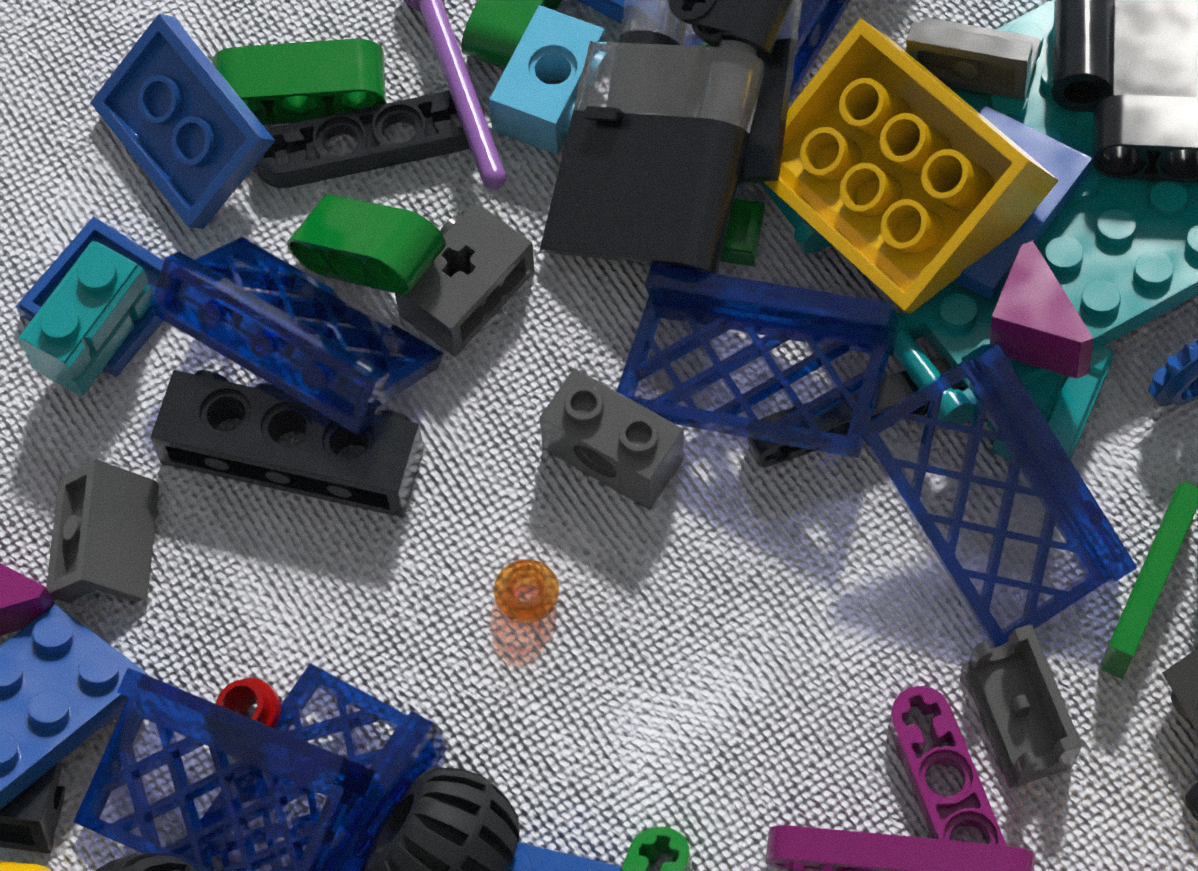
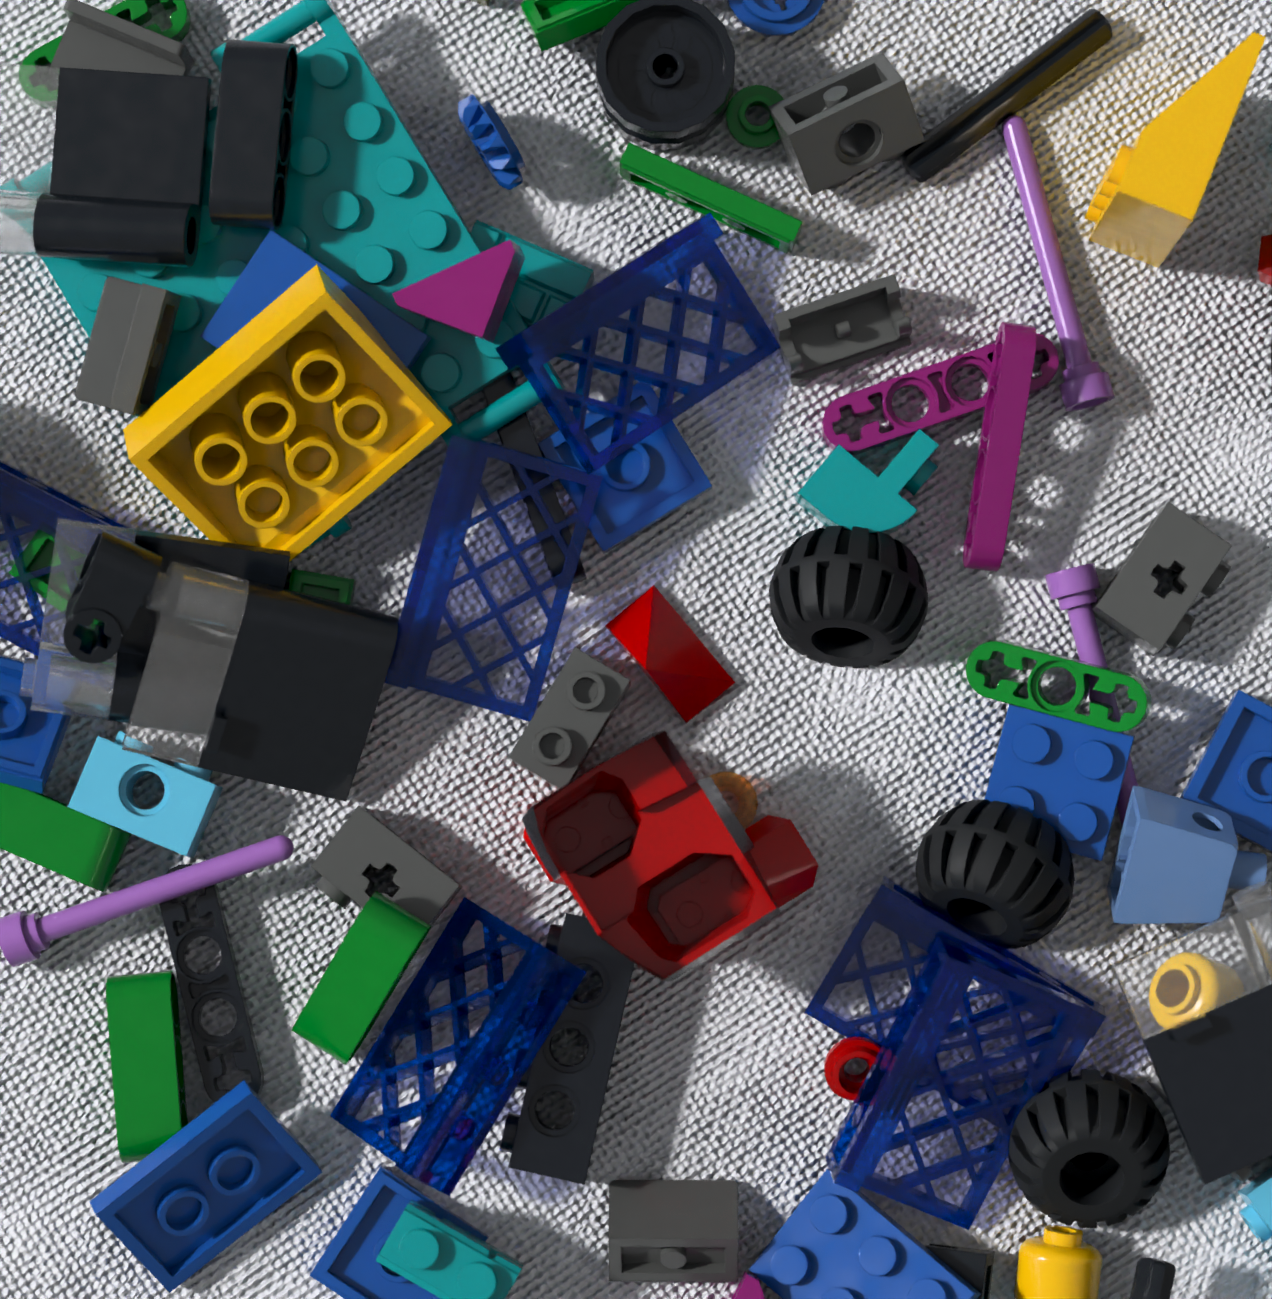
camera: 90 degrees left, 20 degrees up
(458, 489) = (665, 858): none -> red piece
(677, 540) = (670, 654): none -> red slope
(737, 709) = (848, 597): none -> black wheel
(837, 730) = (852, 495): none -> teal brick
(859, 509) = (639, 483): none -> blue plate

